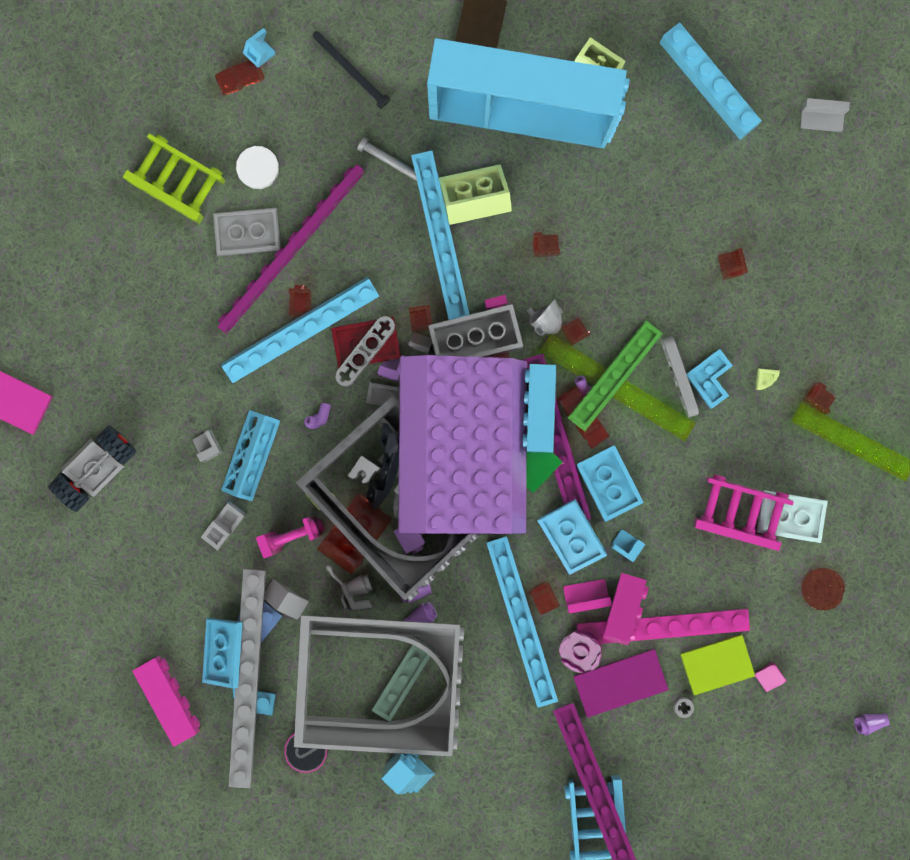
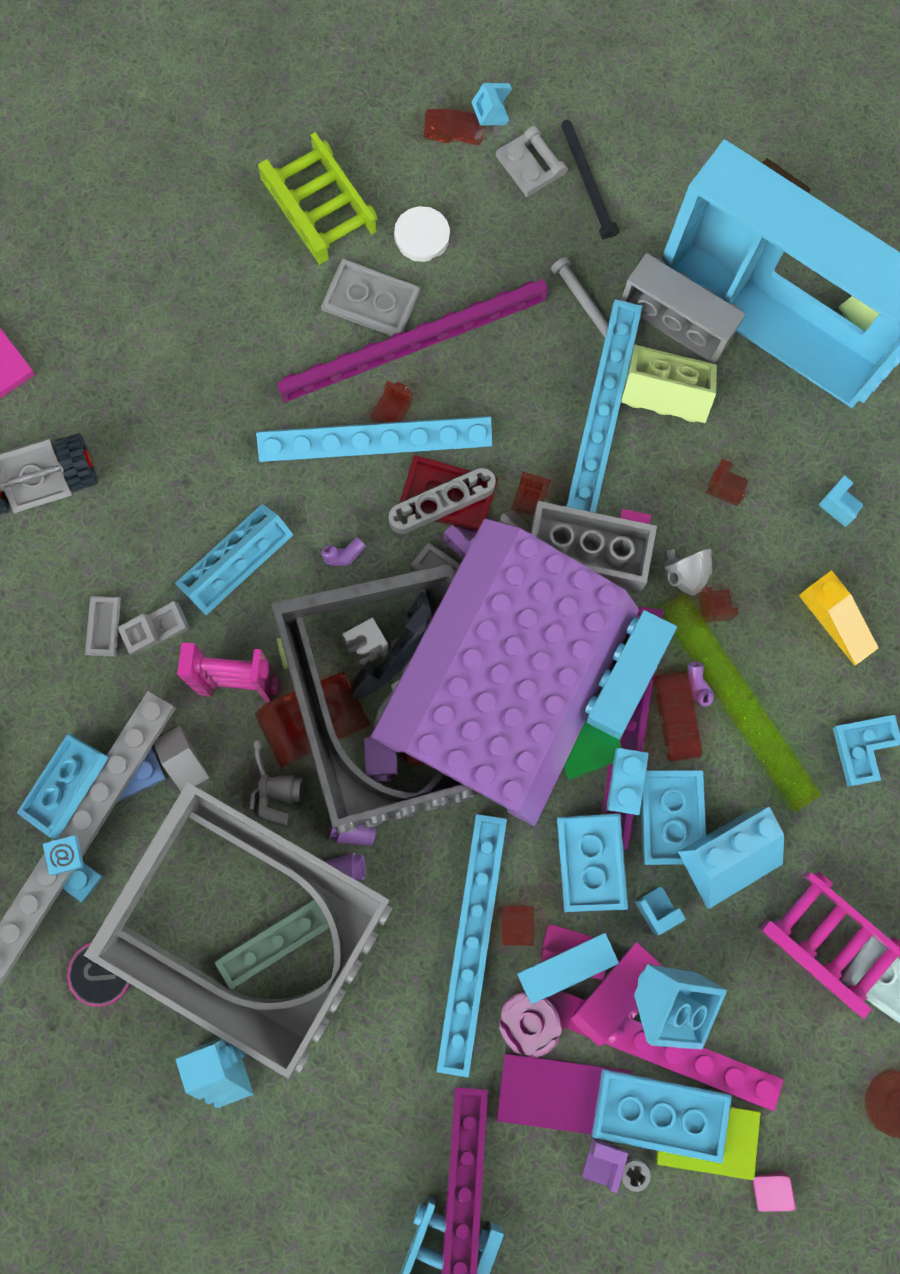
camera: 20 degrees right, 10 degrees down
(190, 540) = (102, 626): none -> light grey tile
(207, 446) = (187, 521): light grey panel -> none
(248, 695) = (63, 855): none -> medium azure tile
(303, 82) = (524, 167): none -> light grey plate
(458, 138) = (682, 308): none -> light grey brick
(570, 477) = (627, 781): none -> medium azure plate
(586, 609) = (567, 968): none -> medium azure tile
(615, 375) = (743, 682): bright green tile -> none
(626, 220) = (841, 503): none -> medium azure panel
(657, 489) = (734, 855): none -> medium azure slope
(658, 300) = (840, 617): none -> yellow slope
(662, 710) = (605, 1164): none -> medium lavender panel
(663, 600) = (677, 1006): none -> medium azure slope
(679, 376) = (826, 726): light grey beam -> none
(683, 666) = (661, 1116): none -> medium azure tile

